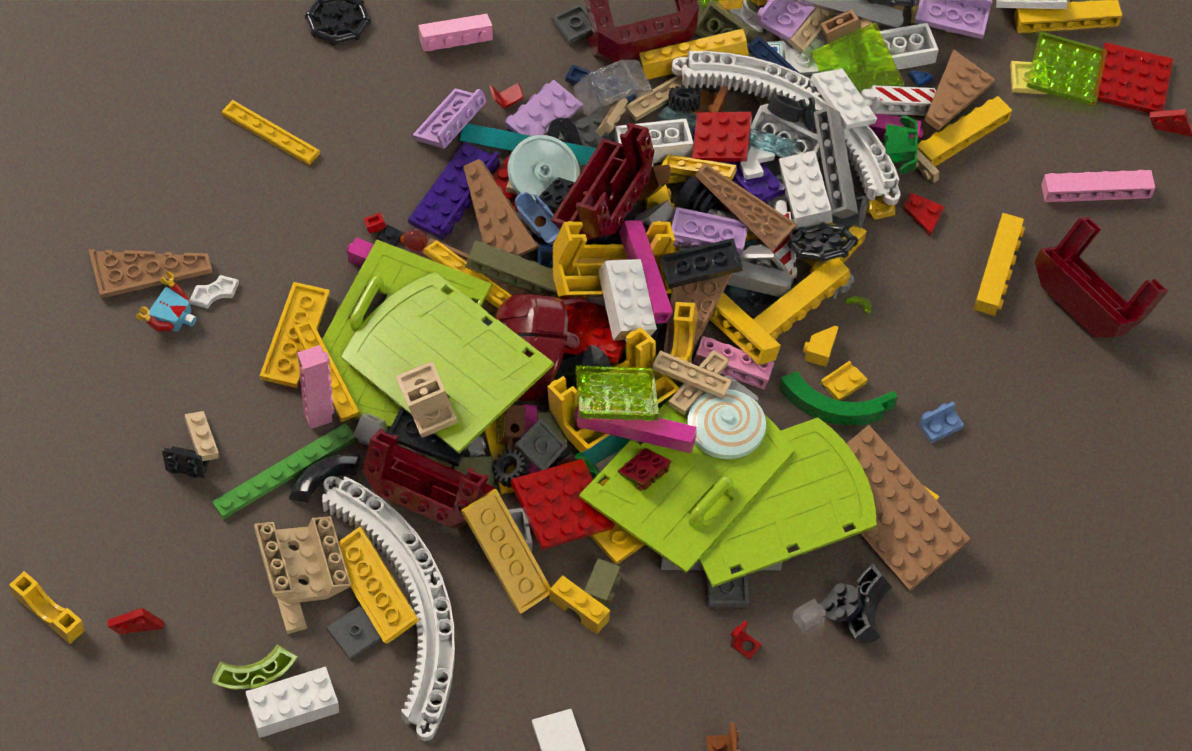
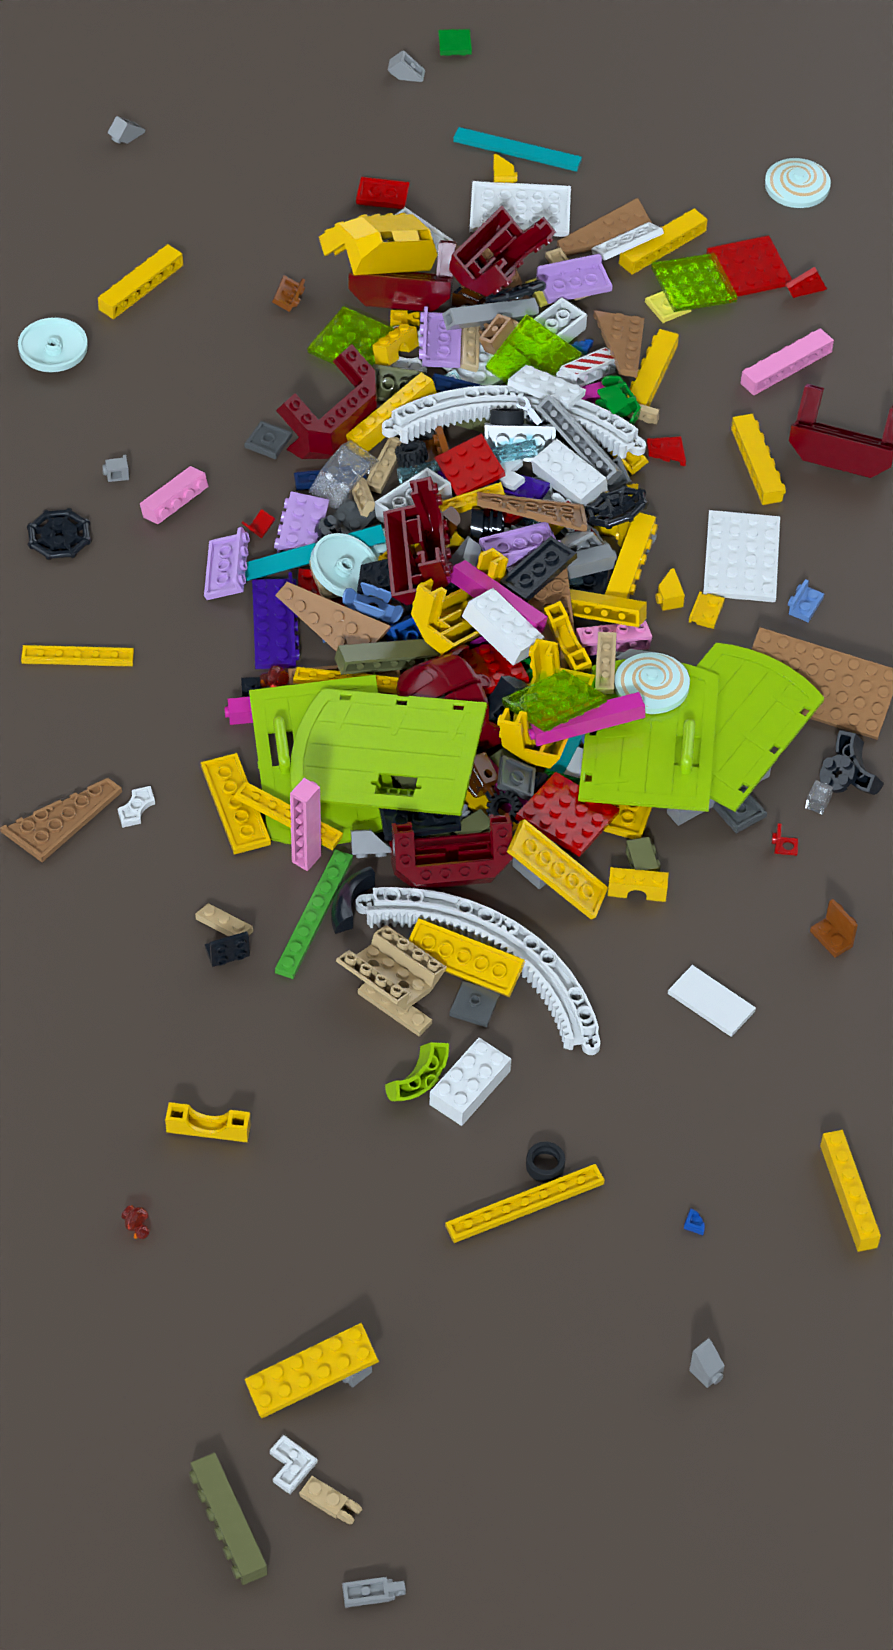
camera: 30 degrees left, 5 degrees down
(135, 621) = (290, 1093): red wing -> none
(170, 309) = (113, 837): torso -> none
(375, 223) = (230, 681): red plate -> none
(427, 399) = (406, 784): tan bracket -> none
(645, 468) = (616, 748): dark red hinge -> none
(691, 374) = (599, 657): tan plate -> none
(833, 410) = (704, 637): green arch -> none
(860, 300) = (670, 542): clear neon green piece -> none
(915, 348) = (742, 556): none -> white plate

